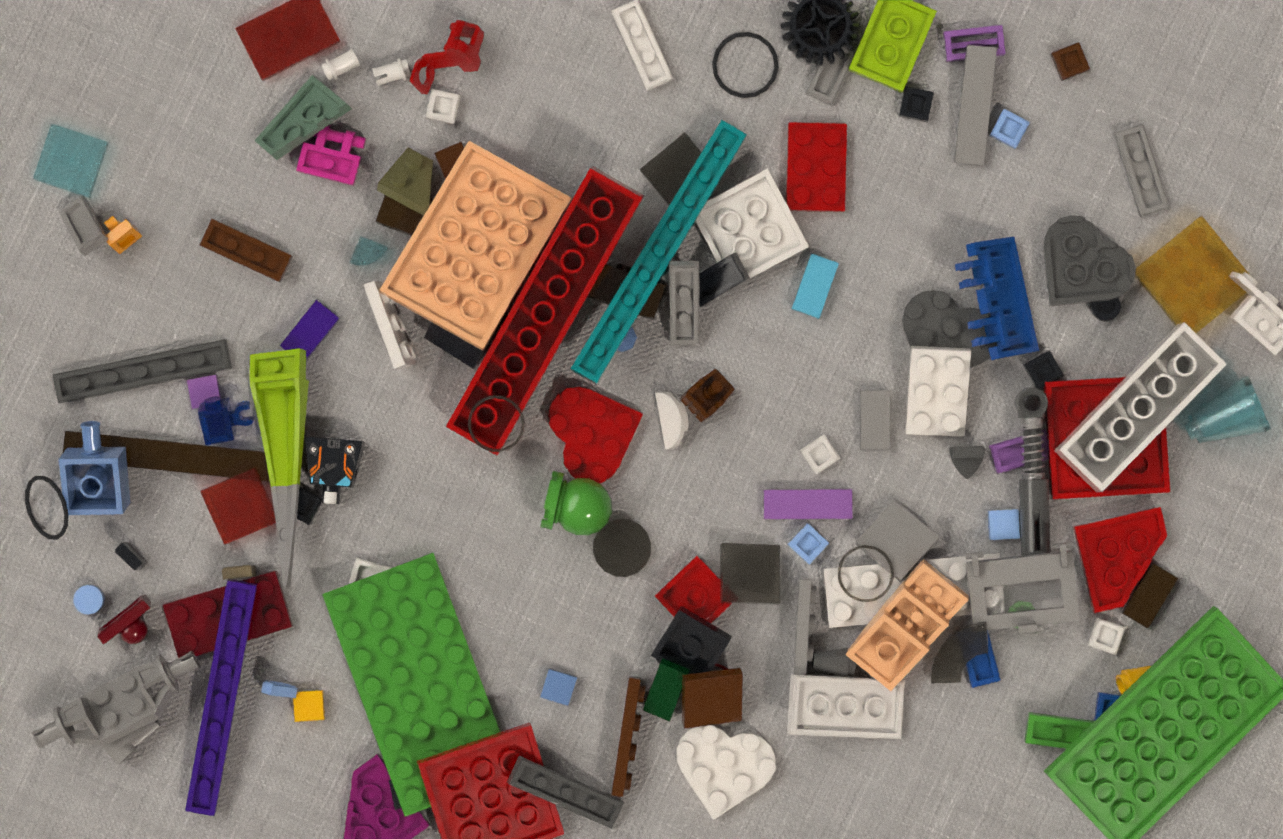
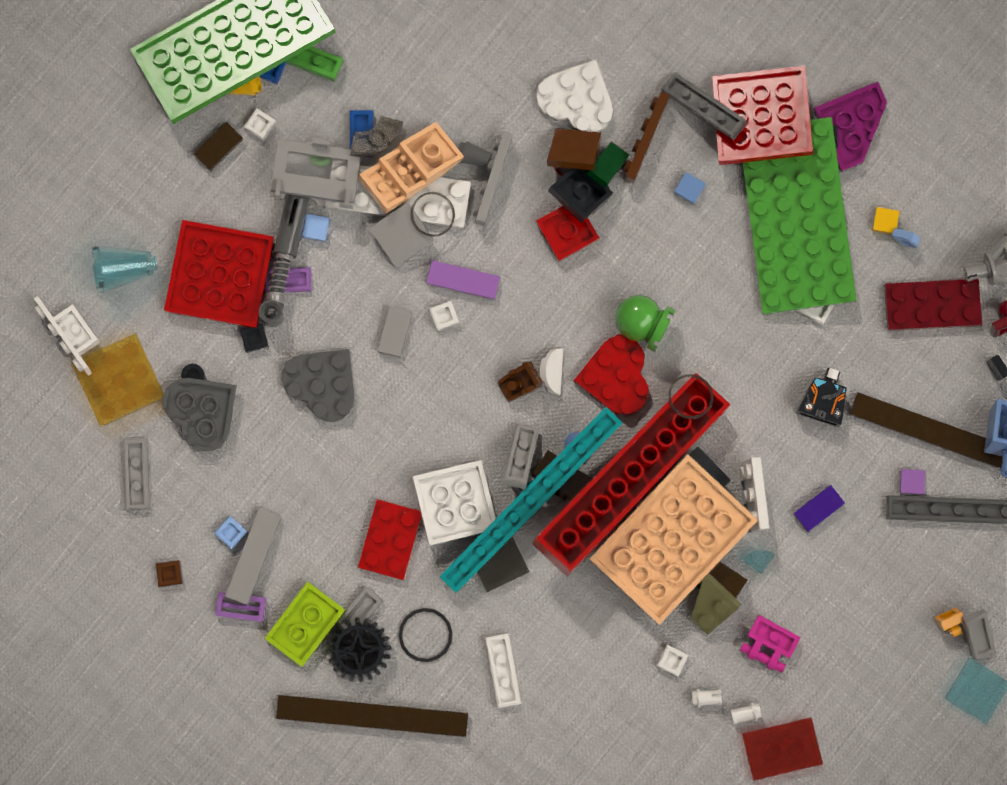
camera: 170 degrees left, 5 degrees down
(219, 421) = (905, 454): clear blue brick -> none
(221, 697) = (952, 242): dark purple plate -> none
(238, 571) = (917, 335): dark tan tile -> none
(239, 505) = (904, 386): clear red tile -> none
(246, 250) = (854, 584): reddish brown plate -> none
(281, 405) = (855, 453): lime plate -> none
(302, 118) = (785, 678): sand green wing -> none
(307, 506) = (855, 375): black tile -> none
(448, 157) = (677, 617): reddish brown tile -> none
(455, 54) = (655, 697): red piece -> none
(622, 547) = (614, 281): clear smoke tile -> none
(721, 278) = (487, 469): black tile -> none
(749, 573) = (521, 237): clear smoke tile -> none
(808, 543) = (470, 250): light blue tile -> none
(815, 286) = (415, 446): medium azure tile -> none
(844, 707) = (475, 117): white tile -> none
(916, 104) = (299, 569): black tile -> none
(937, 391) = (340, 340): white plate -> none
(967, 459) = (331, 284): dark grey tile -> none
(1002, 297) = (272, 398): blue hinge -> none
(1118, 554) = (234, 183): red plate -> none
(1140, 407) = (188, 287): white brick -> none

